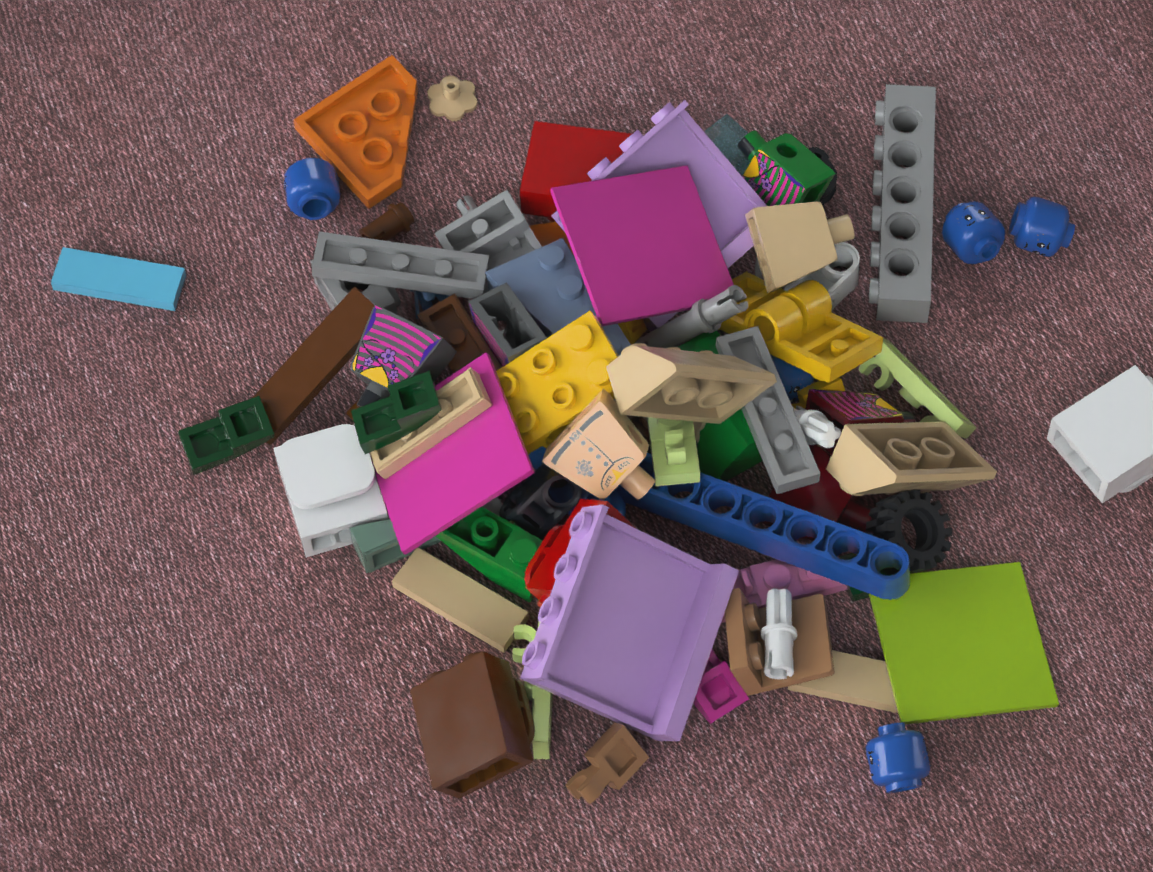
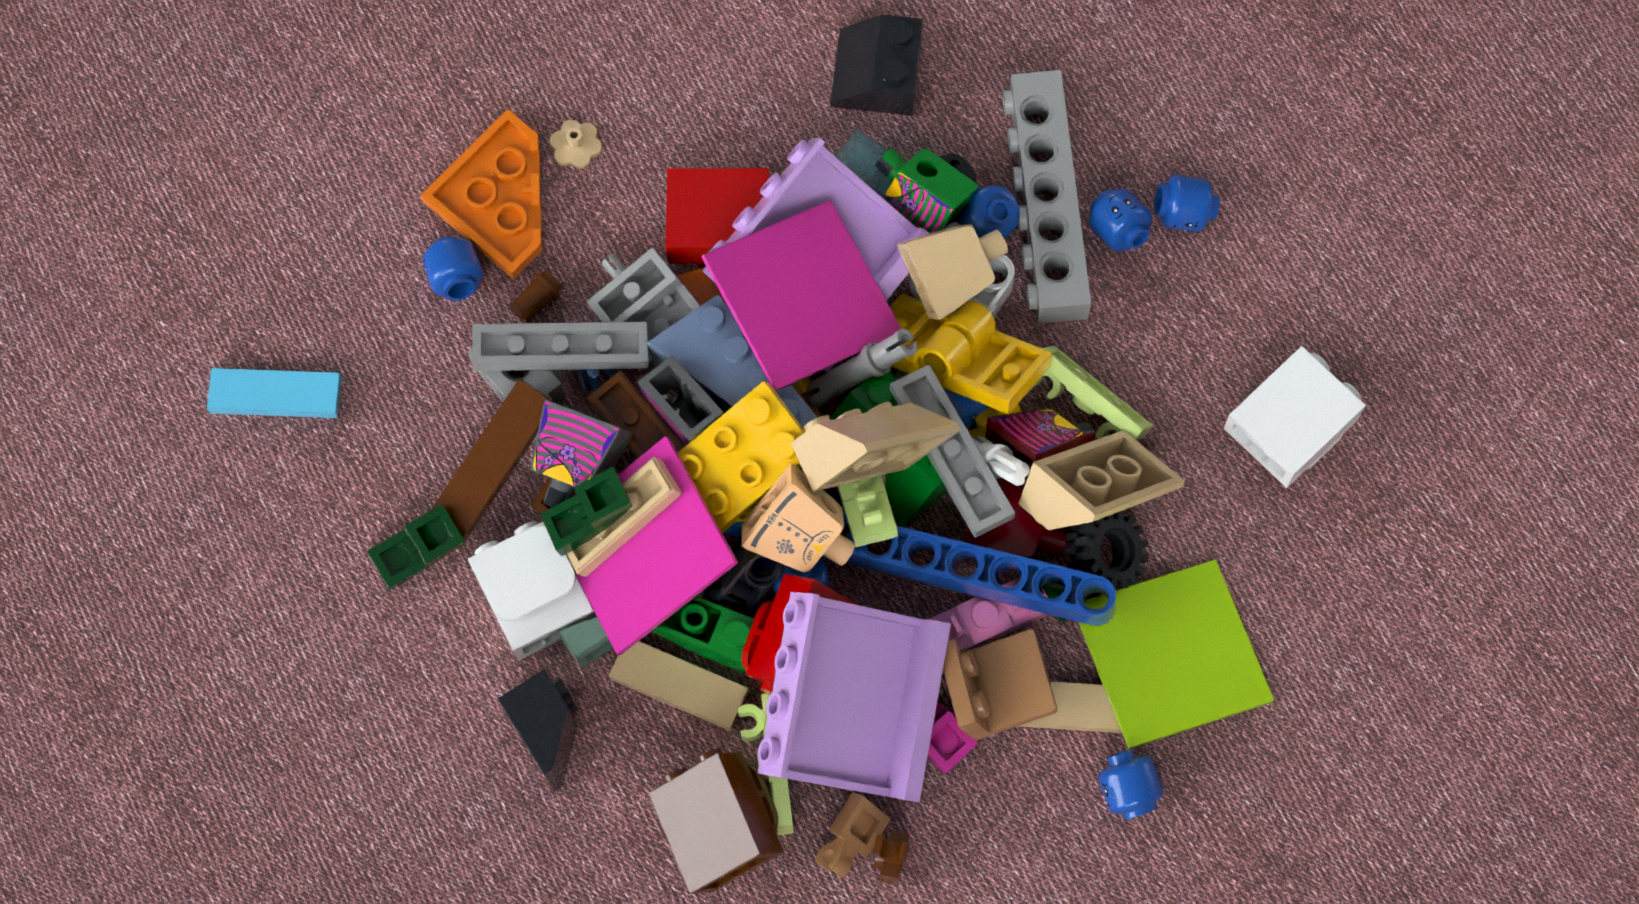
camera: 10 degrees left, 10 degrees up
(319, 609) = (544, 721): none -> black slope
(642, 789) = (891, 855): none -> reddish brown plate
(759, 64) = (878, 65): none -> black slope
(779, 634) = (998, 679): white axle -> none
(849, 198) = (991, 210): none -> blue head

